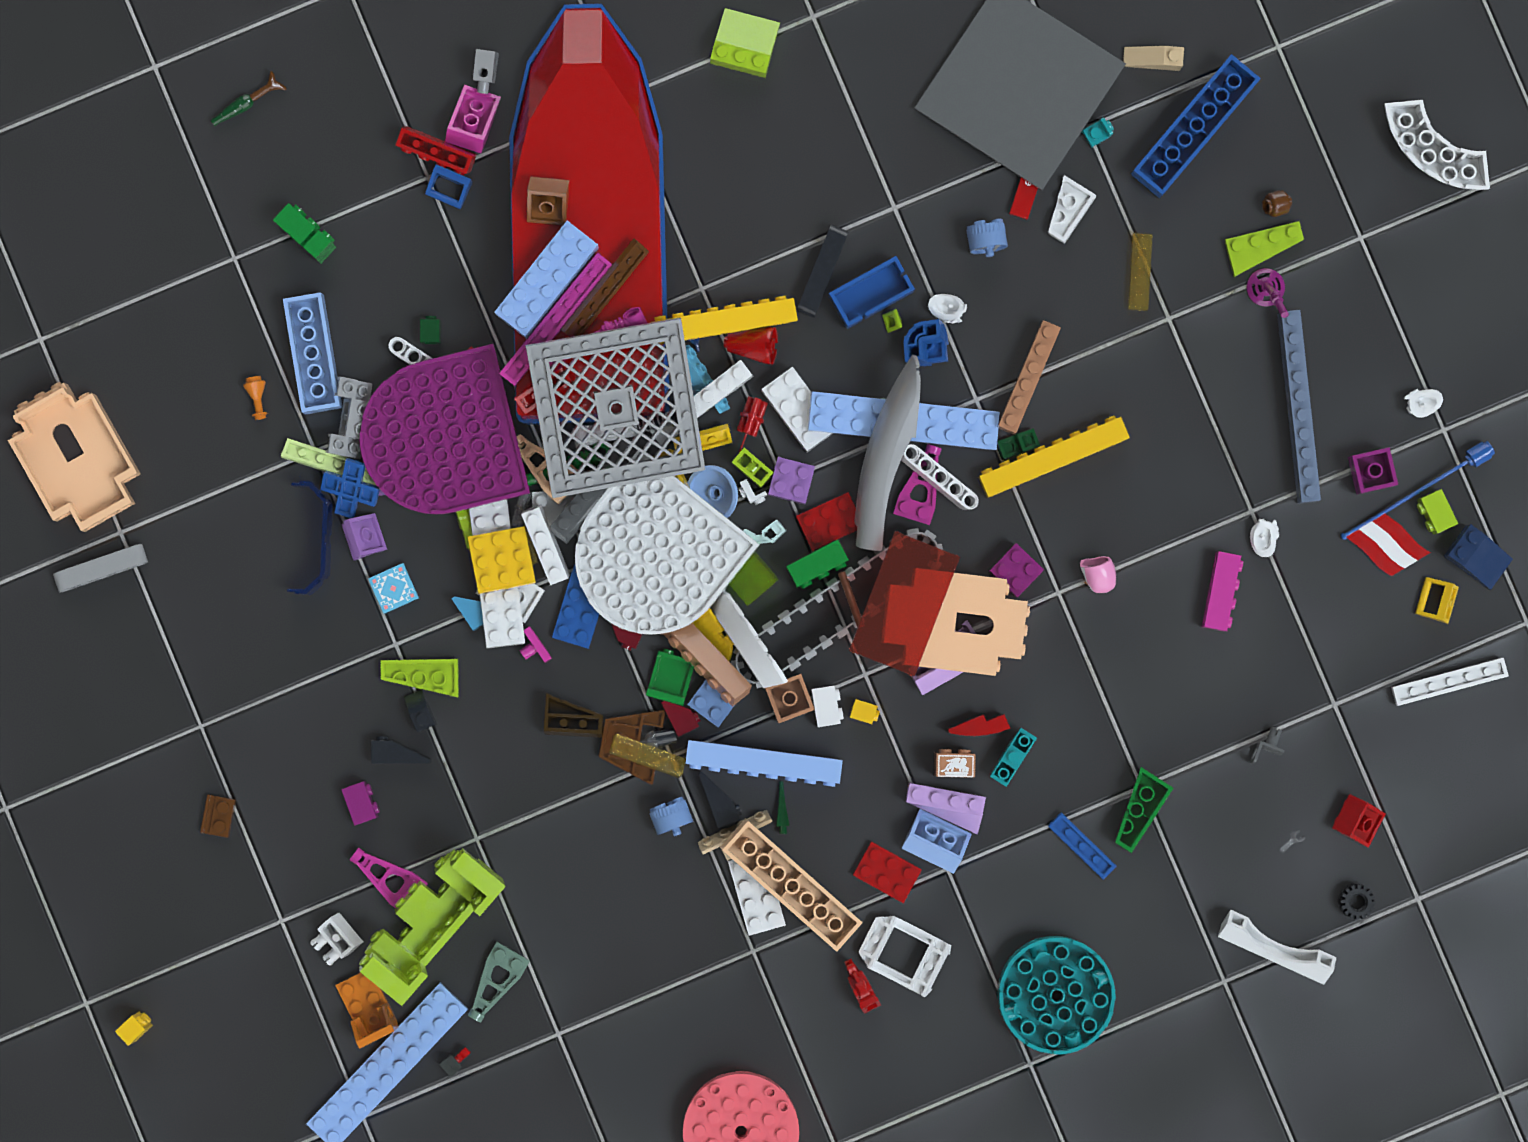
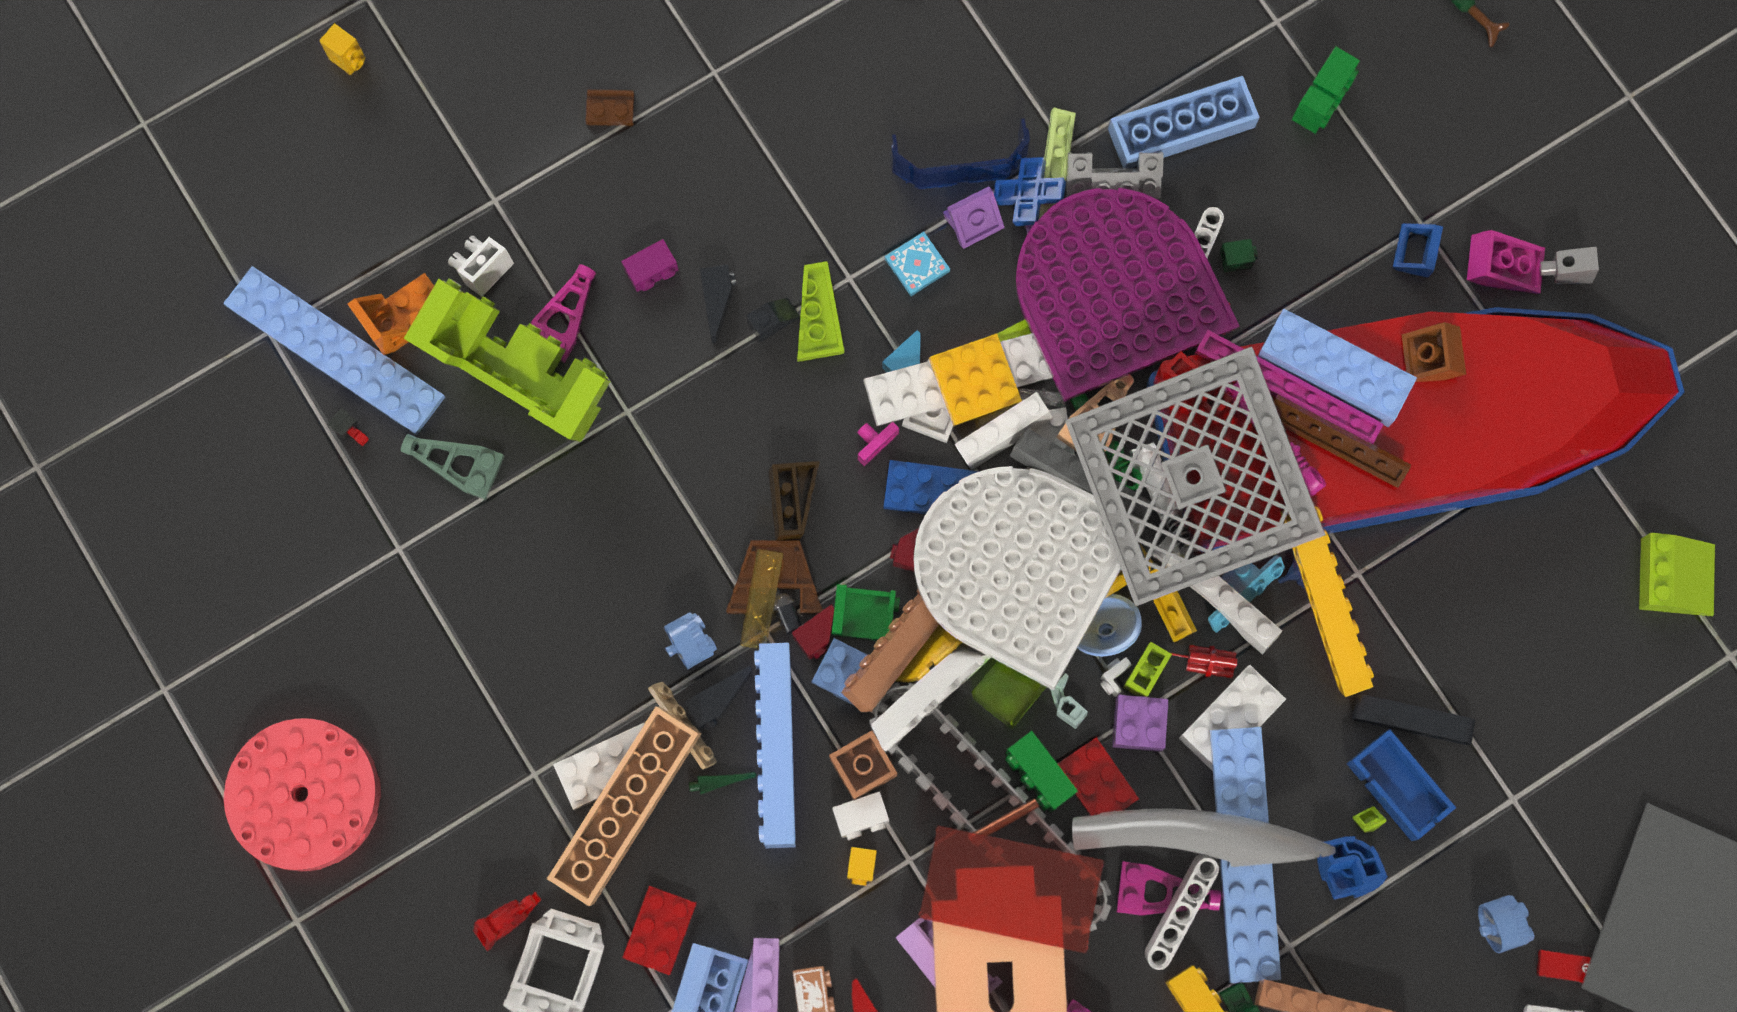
camera: 85 degrees right, 10 degrees down
(255, 389) = (1129, 66): orange piece -> none
(436, 150) = (1459, 225): red brick -> none
(754, 344) = (1303, 648): red cone -> none
(947, 307) = (1401, 887): white hat -> none

